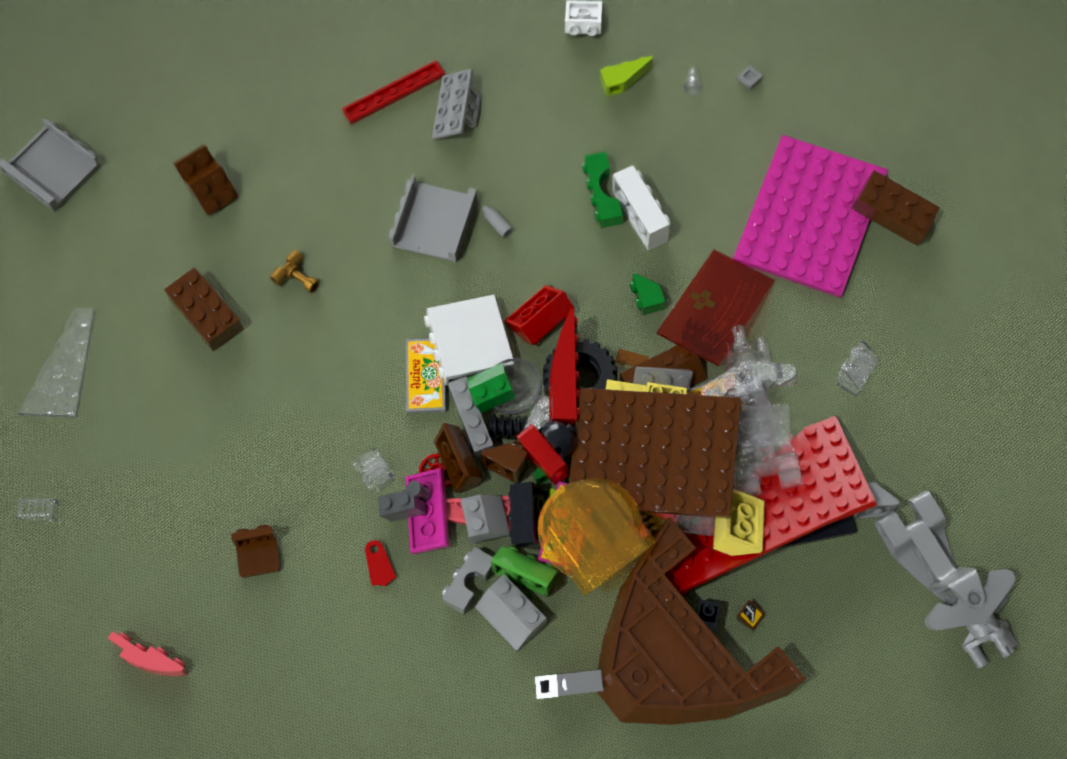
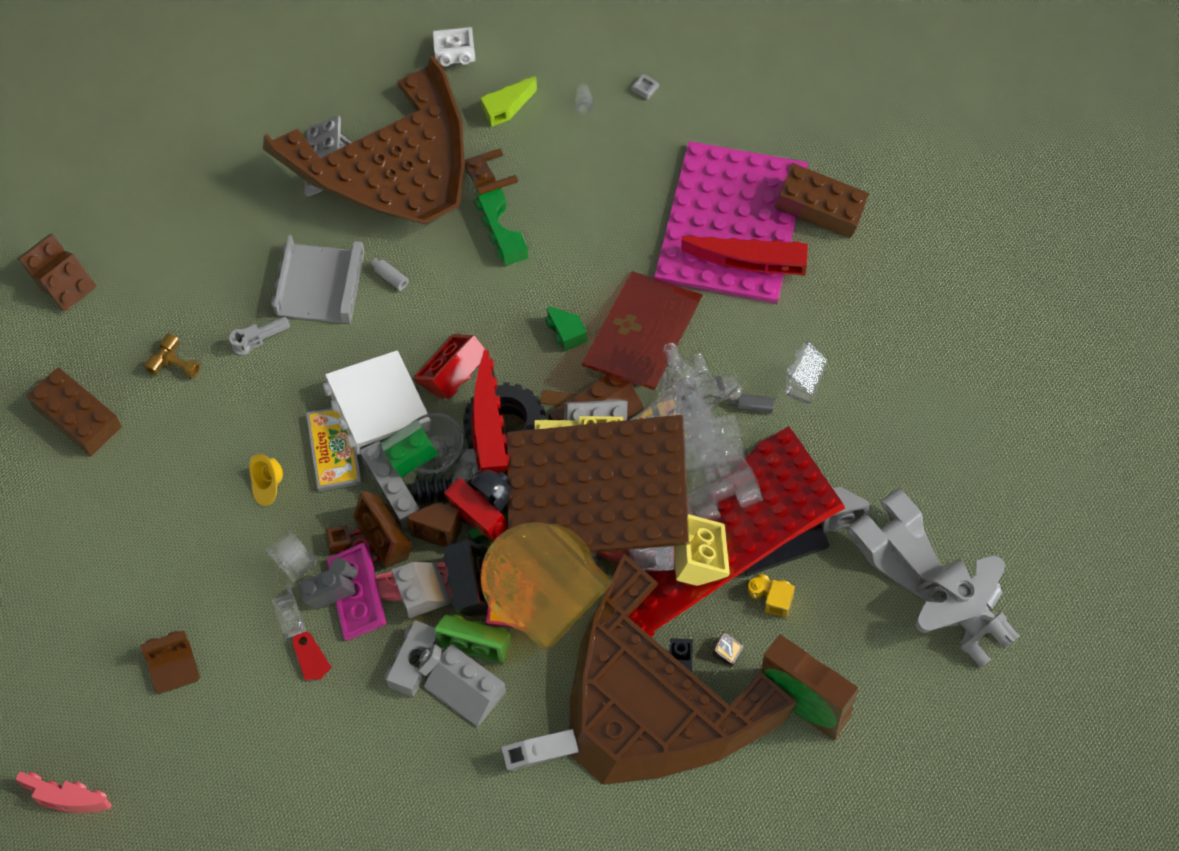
camera: 10 degrees left, 5 degrees down
(361, 395) = (265, 477): none -> yellow piece
(365, 522) = (288, 614): none -> clear panel
(368, 263) = (253, 337): none -> light grey connector
(393, 92) = (249, 155): red tile -> none
(417, 460) = (337, 539): none -> reddish brown slope
(483, 585) = (429, 659): none -> light grey plate
(519, 126) = (400, 170): none -> reddish brown piece
(591, 140) = (482, 175): none -> reddish brown plate
(641, 207) = (546, 237): white brick -> none
(803, 570) = (778, 594): none -> yellow brick
(808, 389) = (754, 403): none -> dark grey cylinder
(823, 250) = (750, 255): none -> red slope
(825, 671) = (820, 692): none -> reddish brown tile

